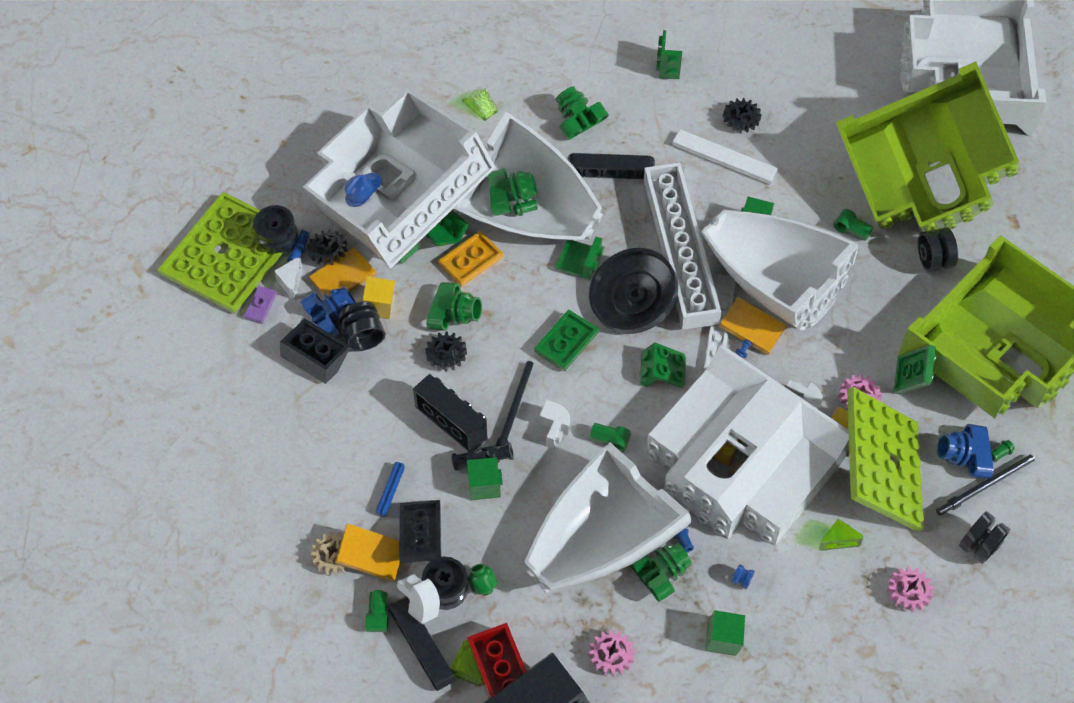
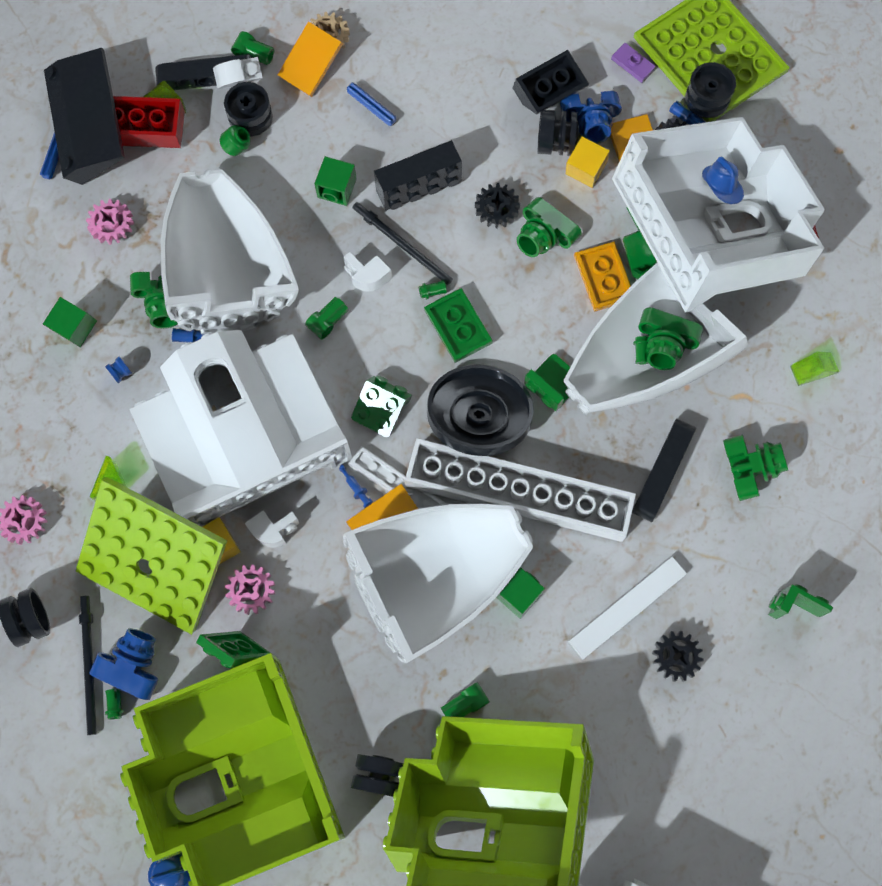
camera: 115 degrees right, 15 degrees up
(289, 276) = (651, 95): white slope -> none
(420, 531) = (305, 102): black plate -> none
(501, 452) = (359, 189): black piece -> none
(543, 369) = (432, 289): none -> green pin

